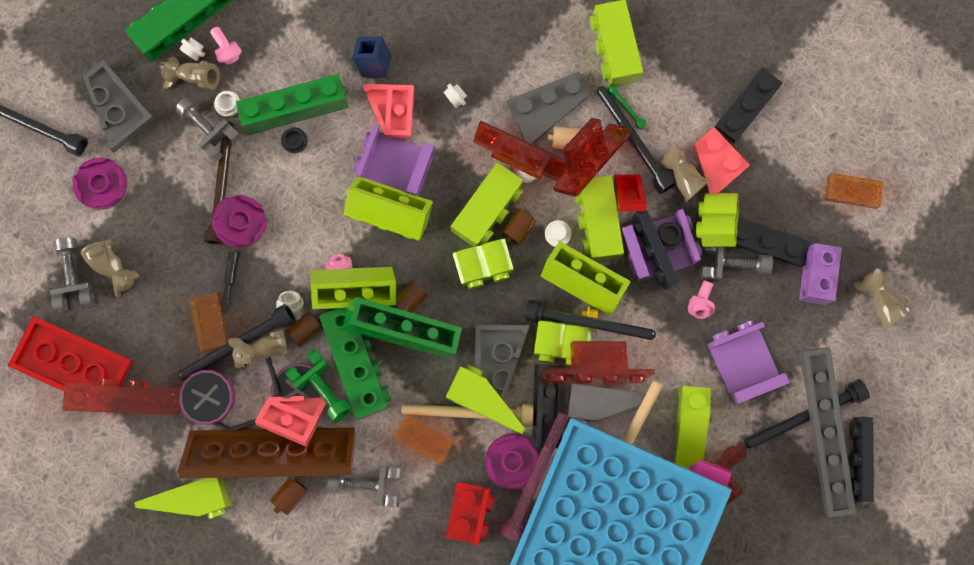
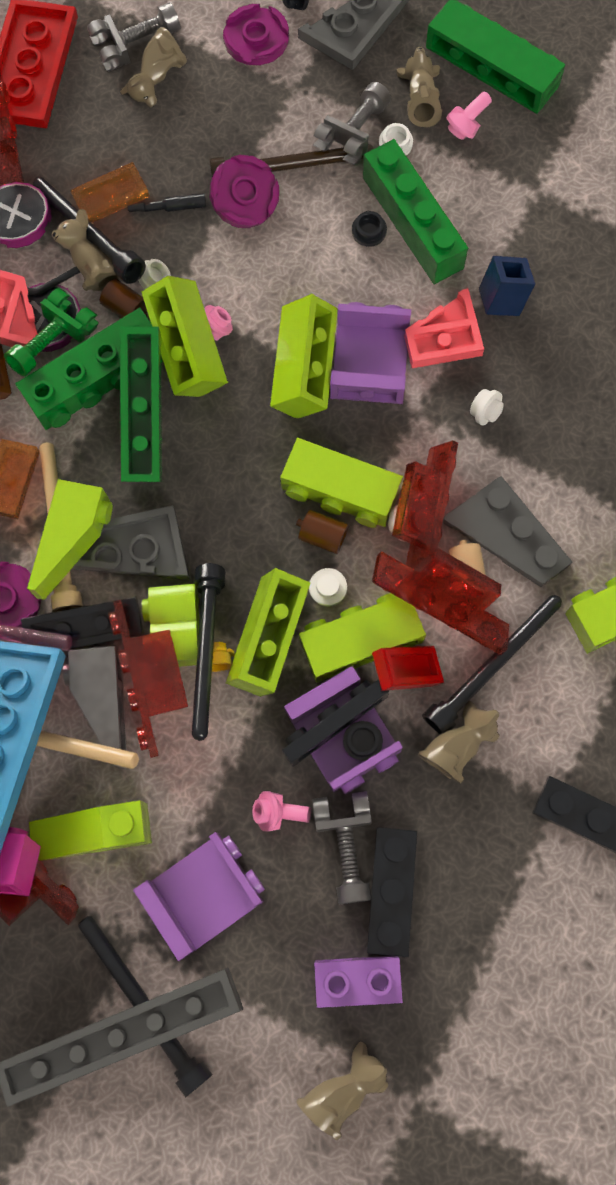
camera: 85 degrees right, 5 degrees down
(192, 48) = (455, 82): white plate -> none
(410, 297) = (191, 416): reddish brown piece -> none
(483, 264) = (260, 496): lime brick -> none
(640, 122) = (522, 668): green hinge -> none
(718, 161) = (495, 793): coral wing -> none
(719, 220) = (400, 806): lime brick -> none
(853, 190) = (506, 1013): clear orange plate -> none
(862, 458) = (89, 1101): black plate -> none

